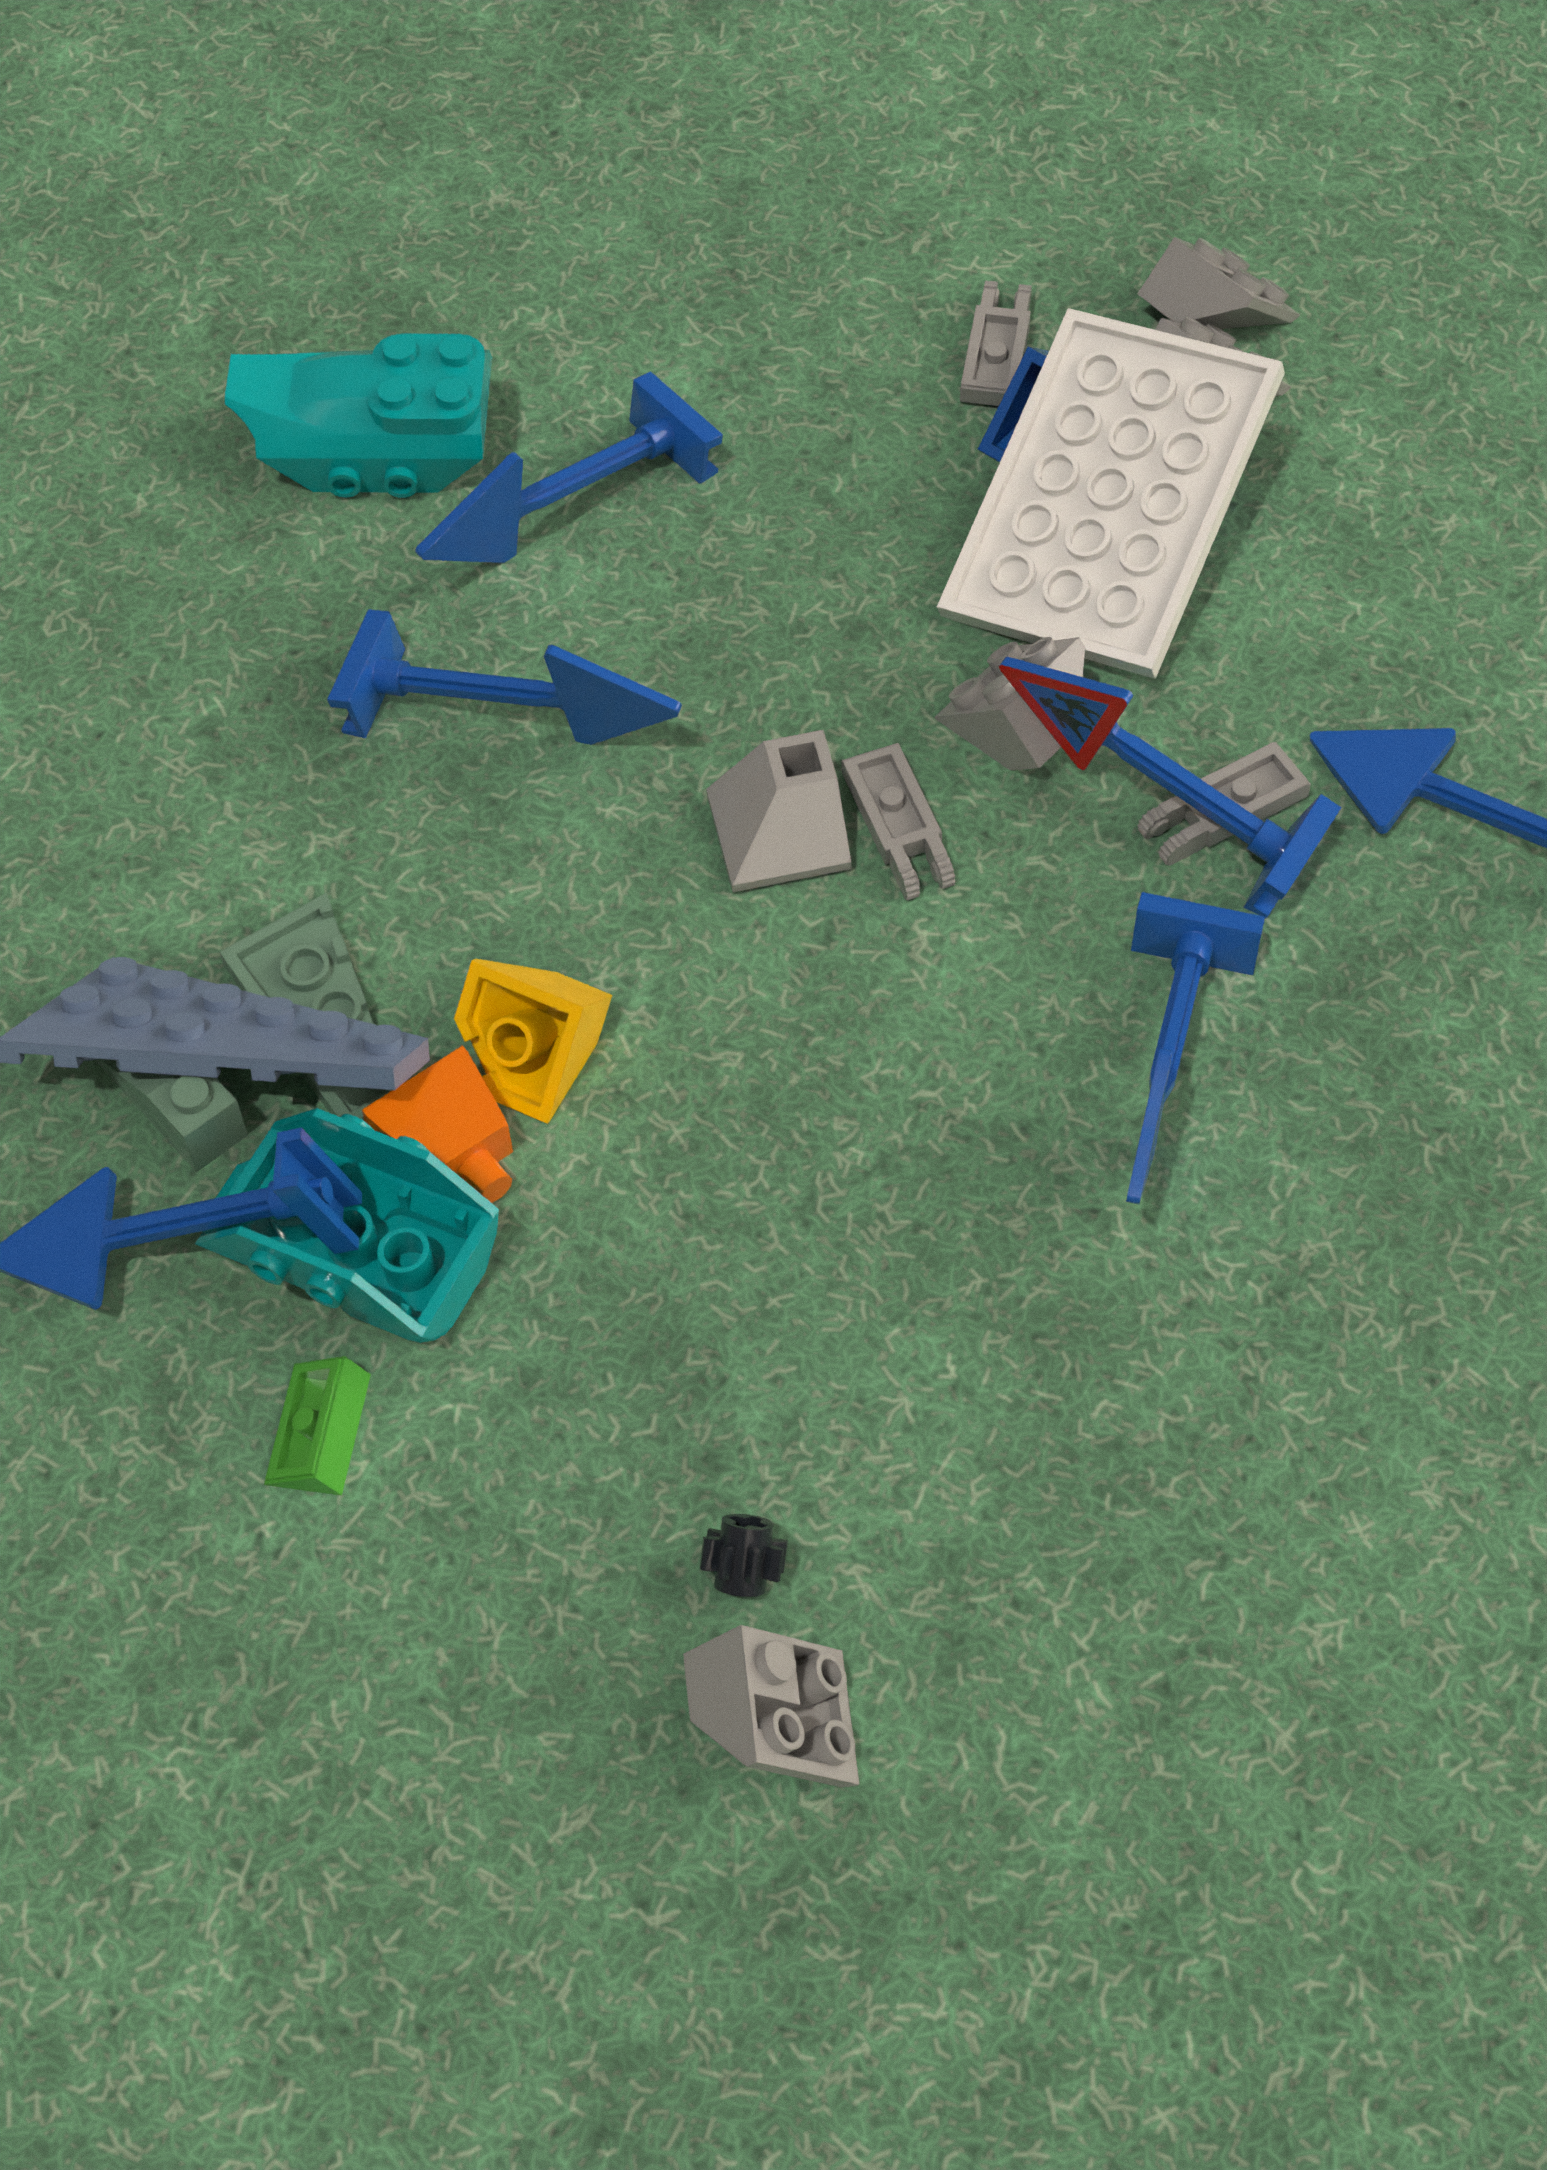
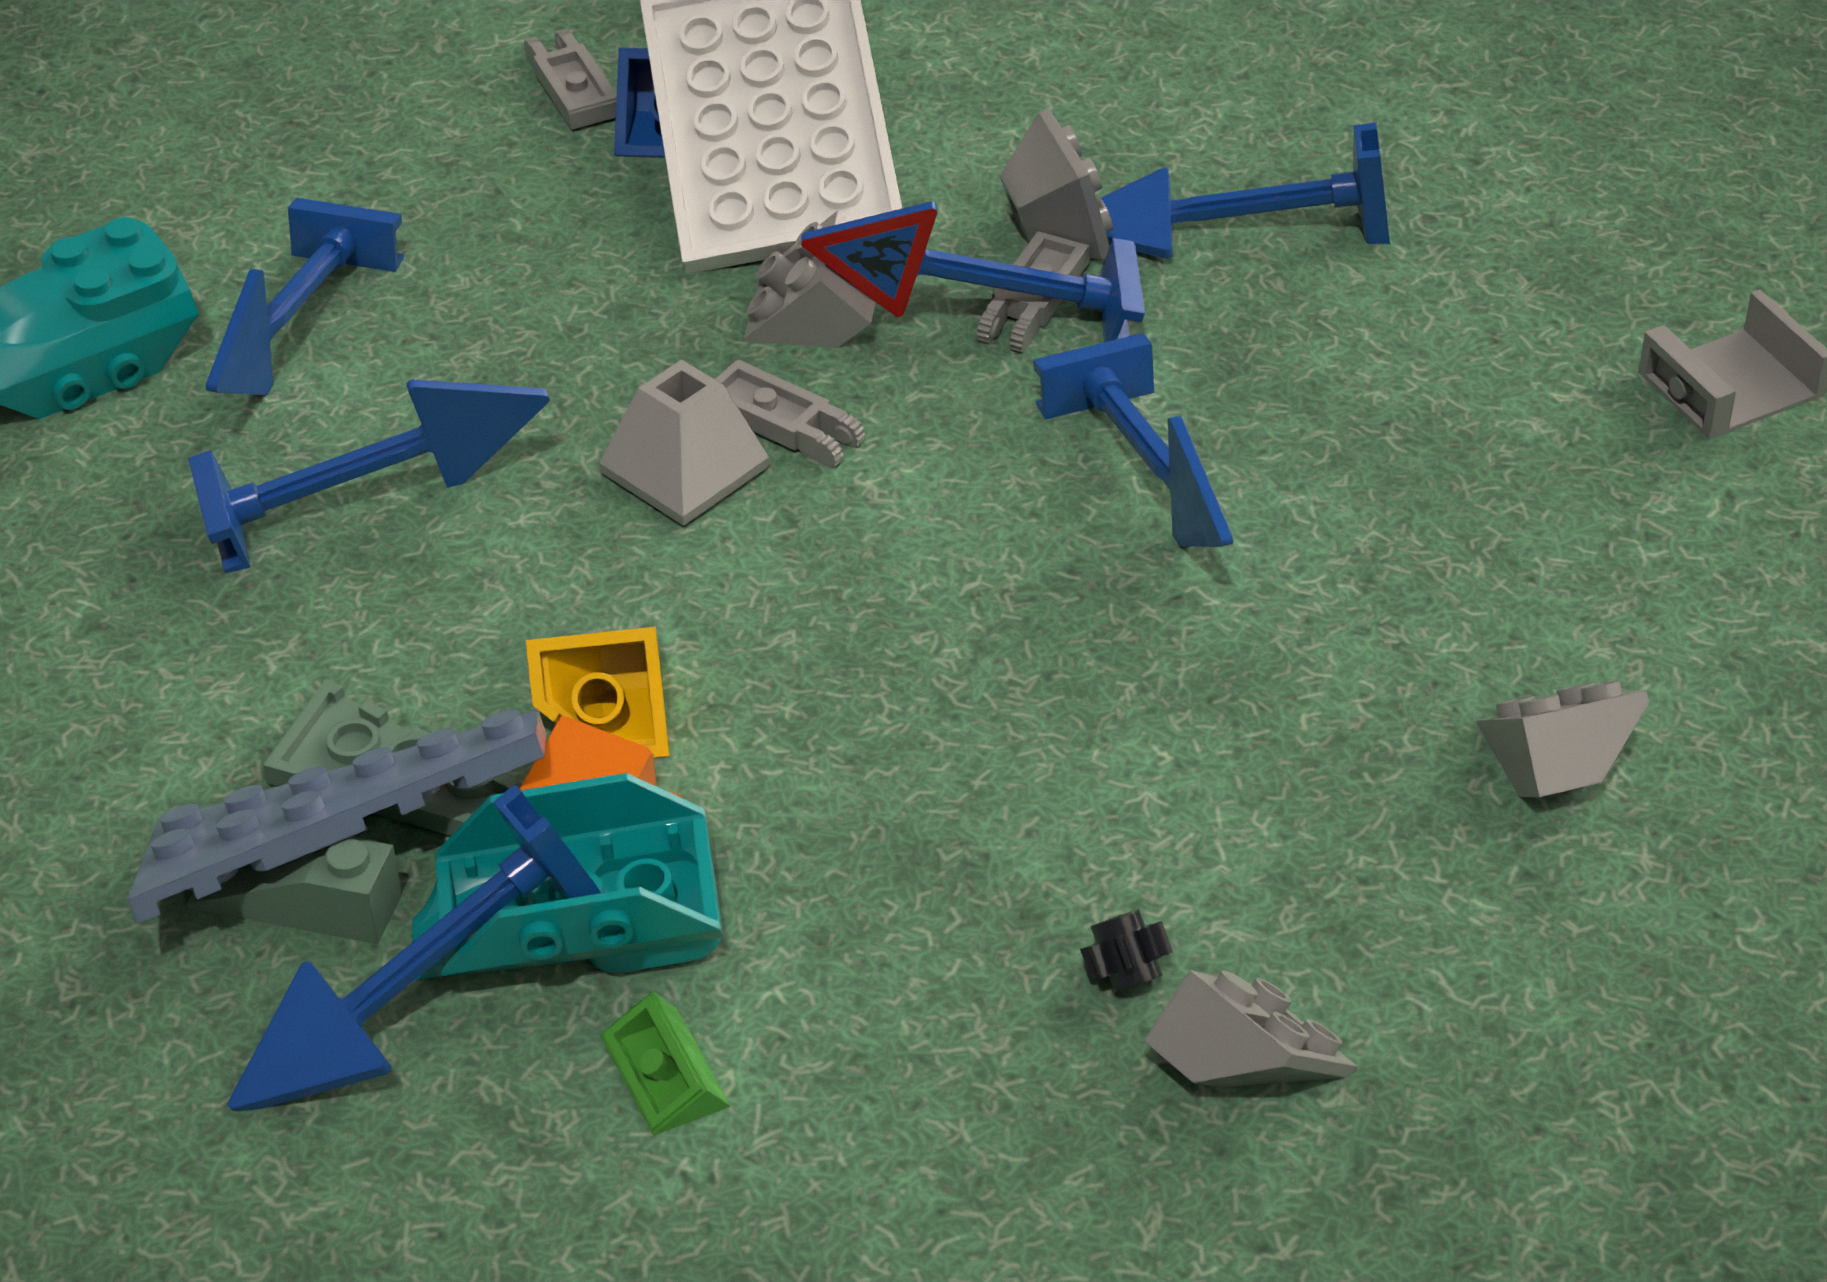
camera: 35 degrees left, 15 degrees down
(1300, 1573) = (1564, 737): none -> light grey slope
(1313, 709) = (1054, 188): none -> light grey slope

